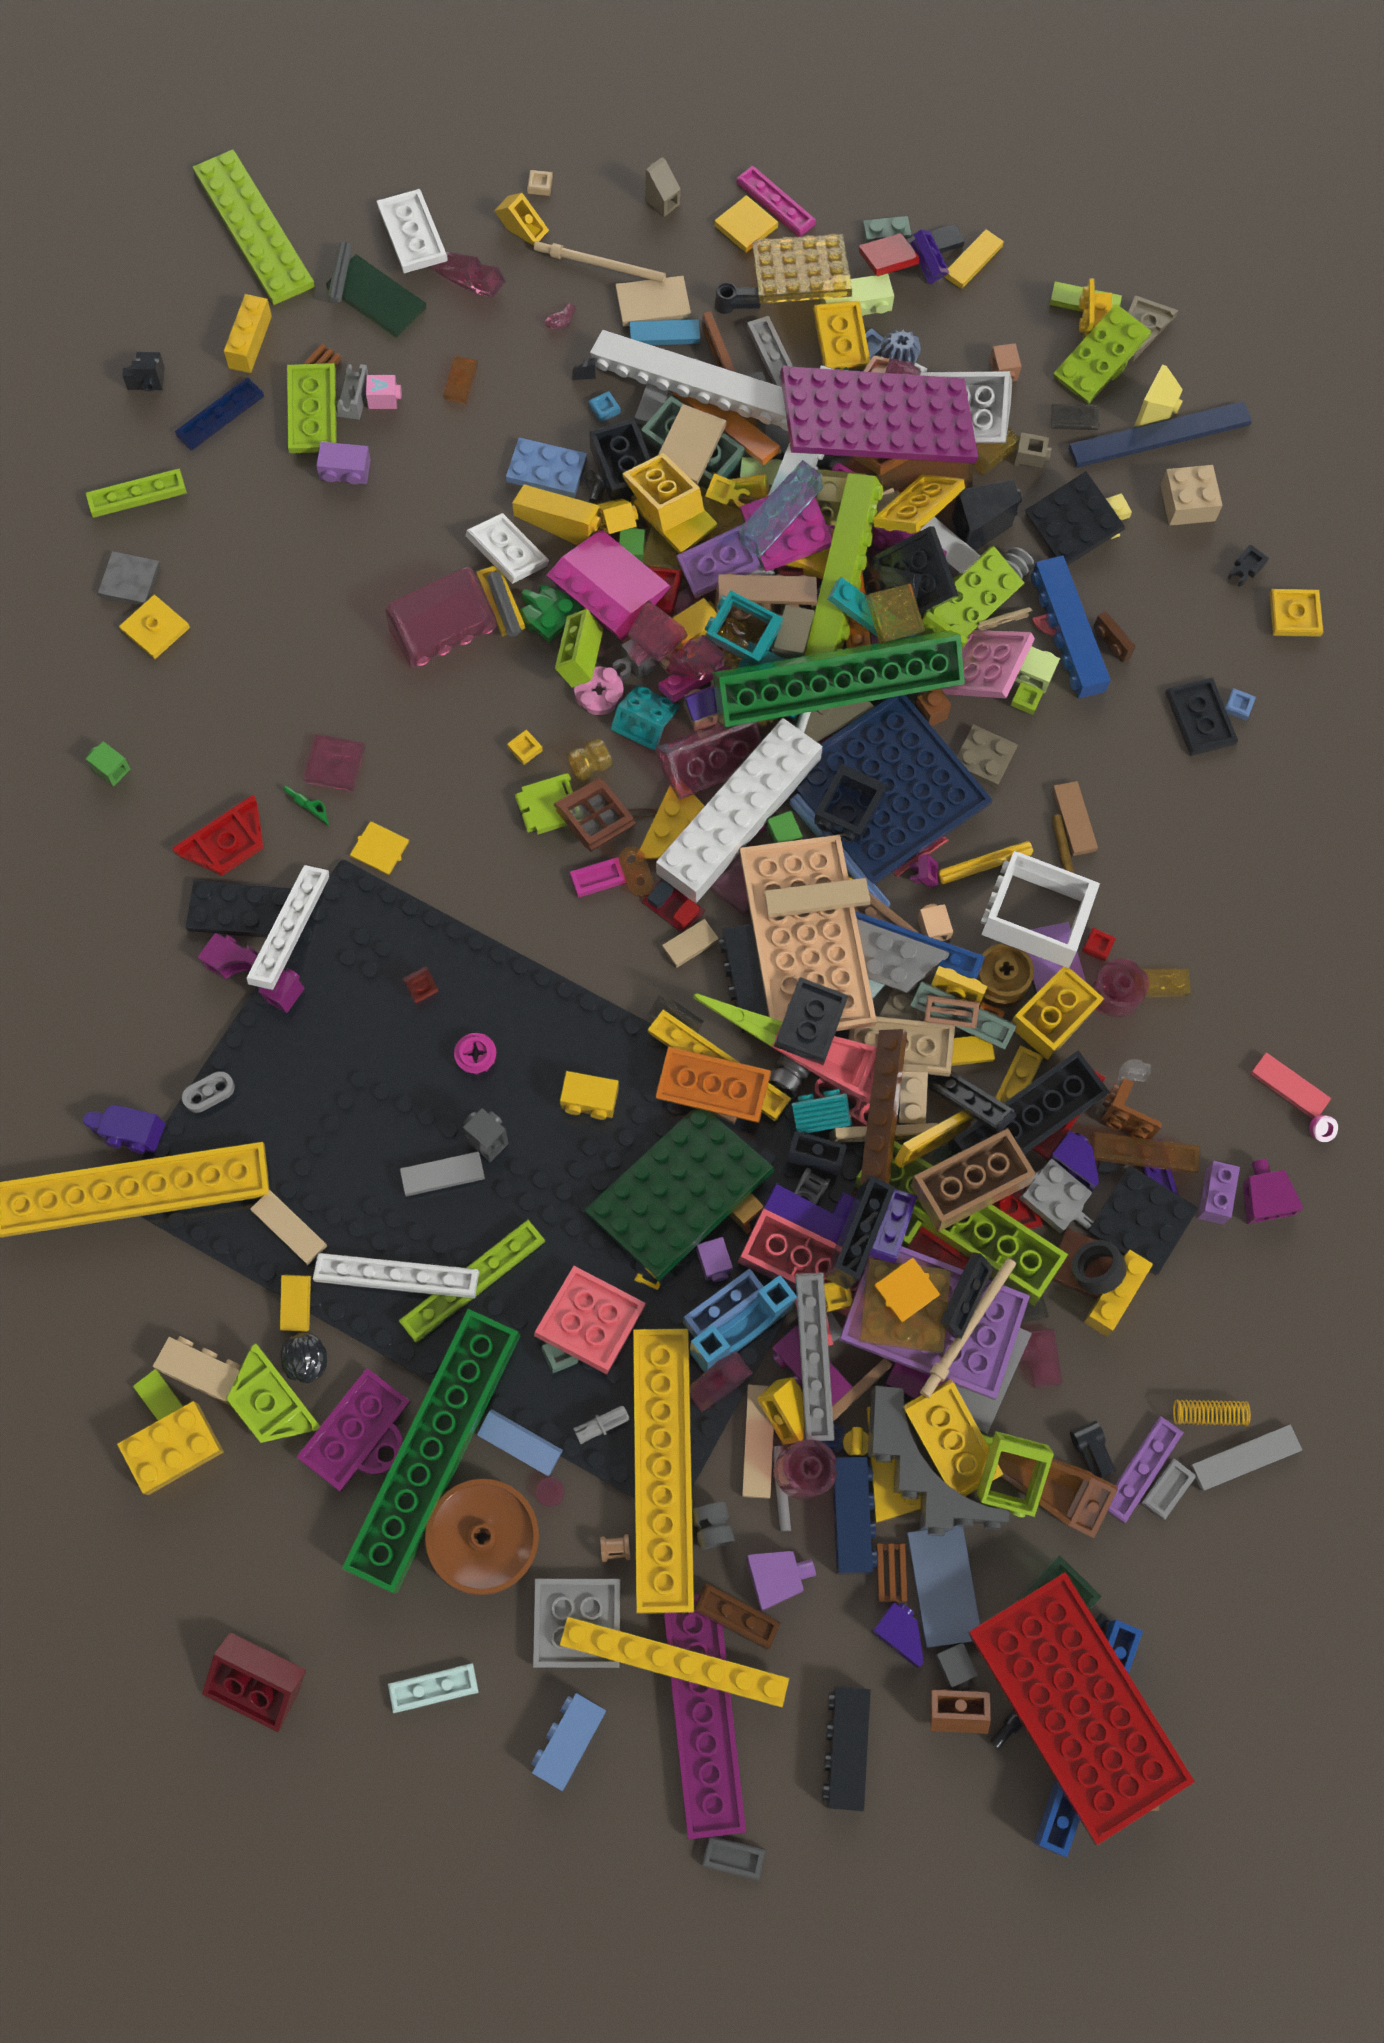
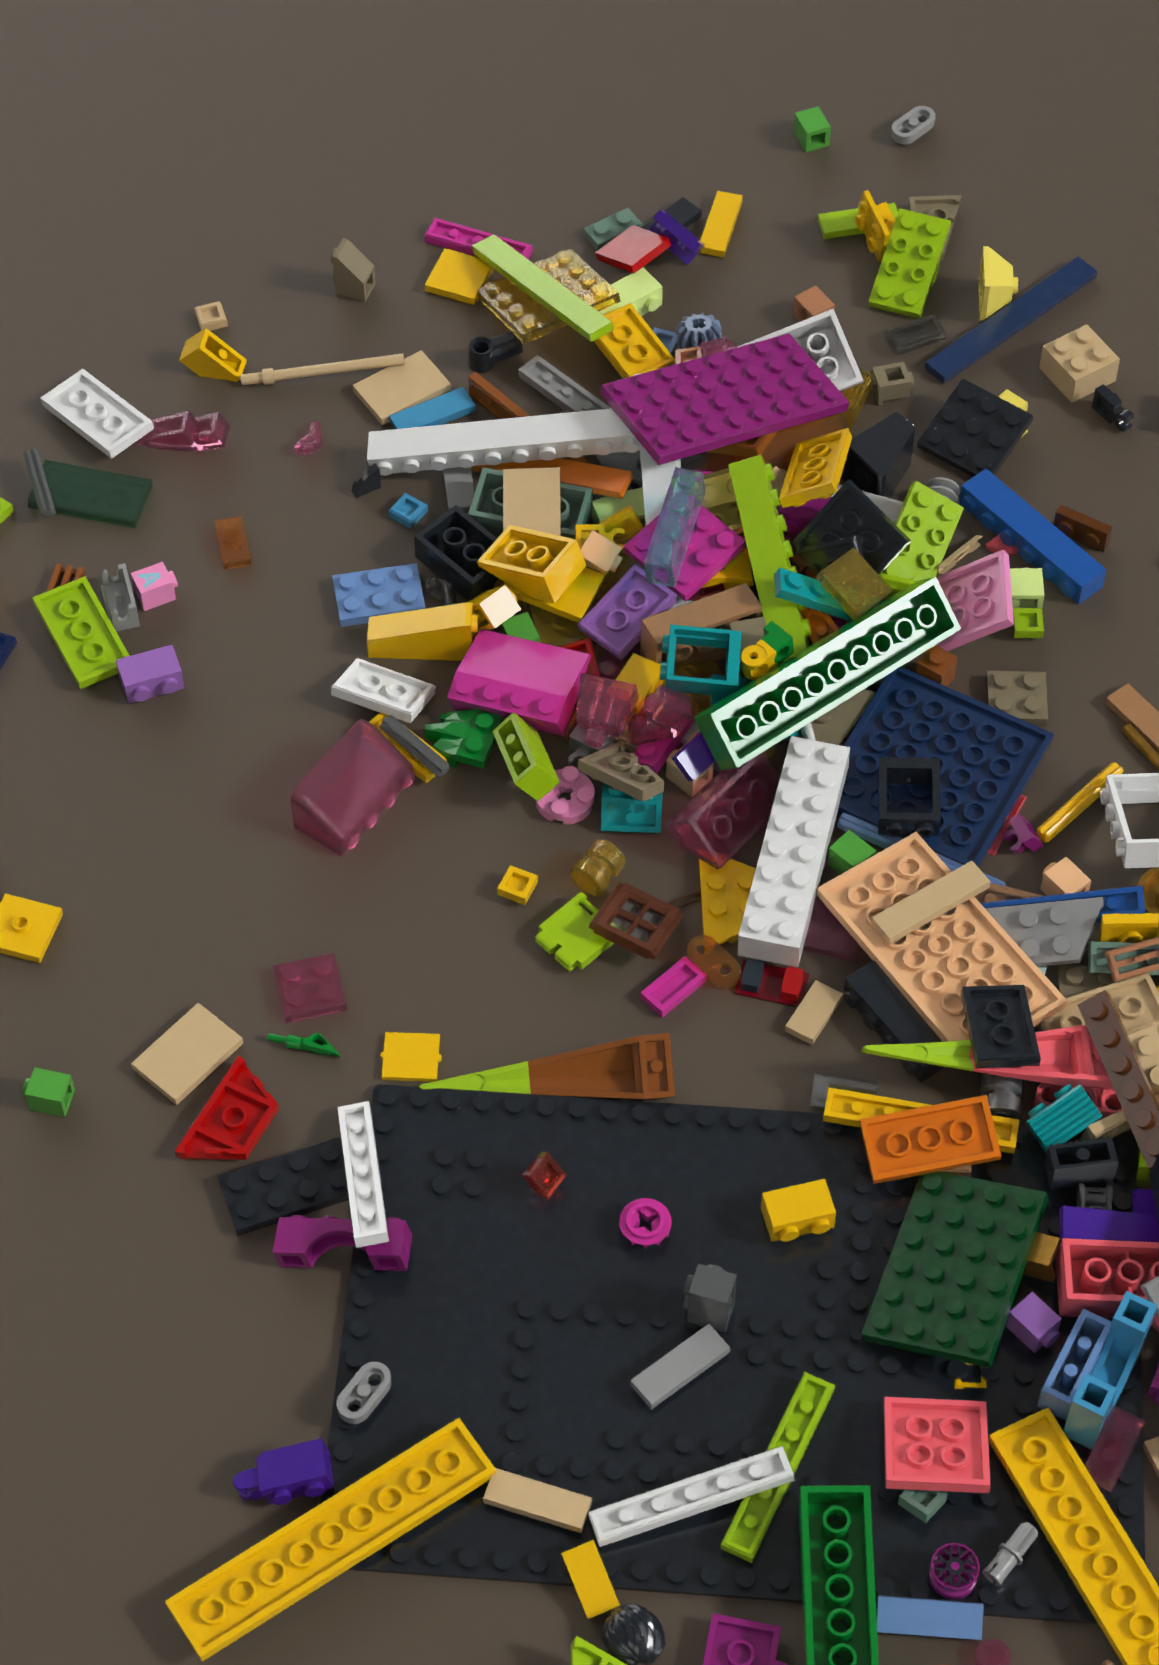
camera: 20 degrees left, 15 degrees down
(221, 775) = (187, 1053): none -> tan tile
(519, 925) = (615, 1070): none -> dark orange plate
(552, 1418) = (953, 1571): none -> magenta wheel
(643, 691) = (622, 772): none -> dark tan wing
(720, 505) = (601, 553): none -> light nougat brick
(796, 261) = (543, 288): none -> lime tile
(796, 643) = (767, 652): none -> leg
(1090, 204) = (812, 129): none -> bright green brick
(1171, 234) = (913, 125): none -> light grey plate
(1194, 540) = (1109, 407): none -> black plate

